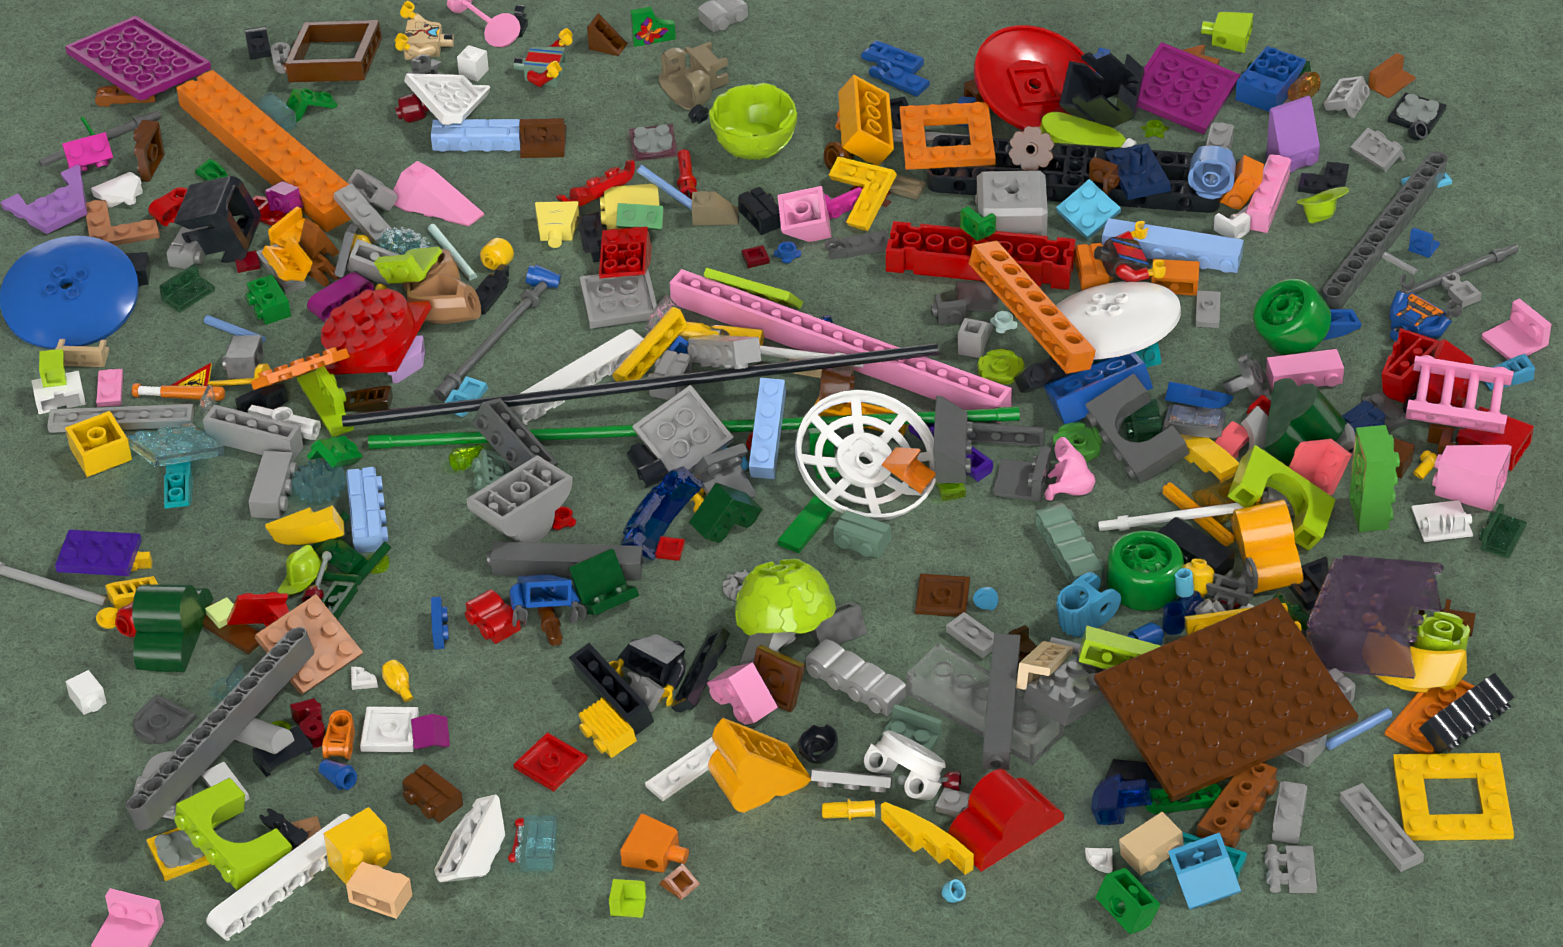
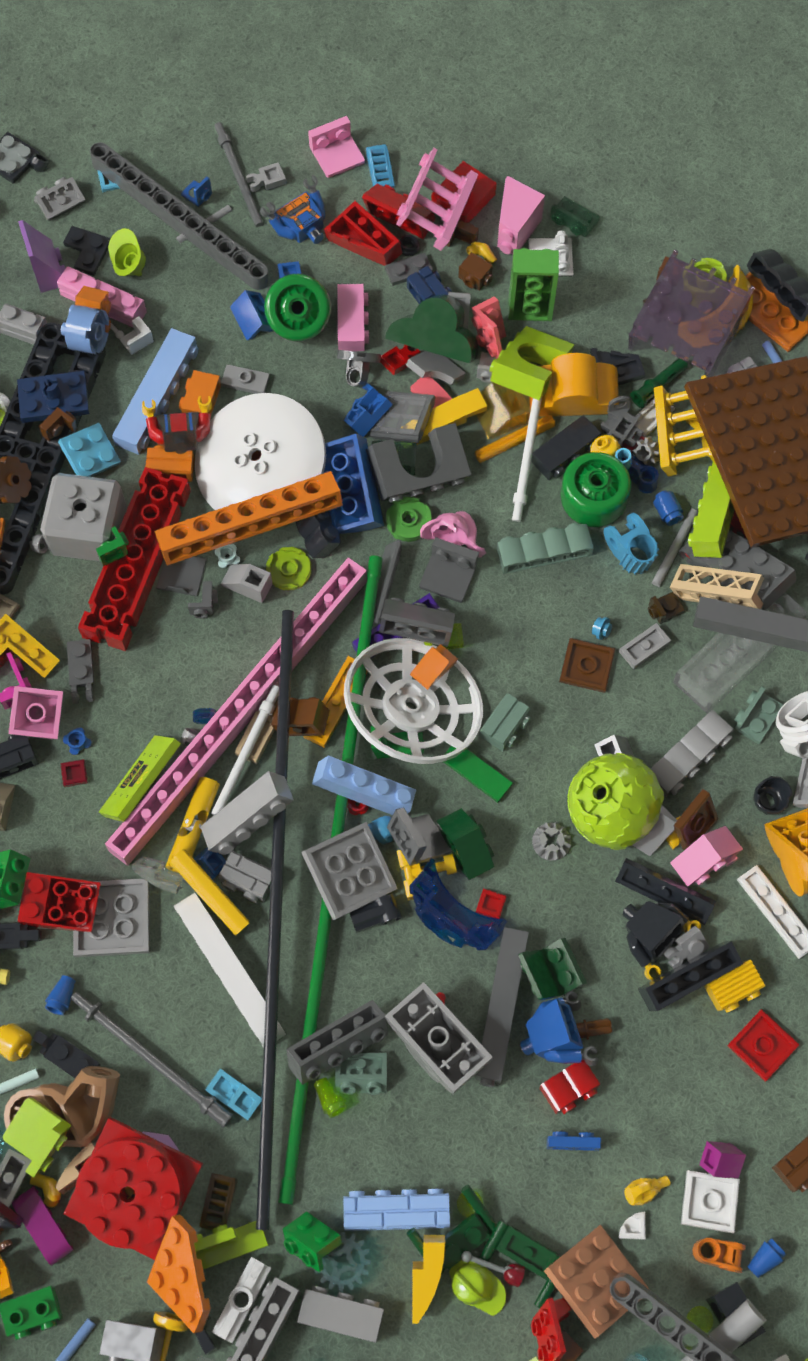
camera: 85 degrees left, 25 degrees up
(310, 719) = (707, 1283): dark red leg -> none

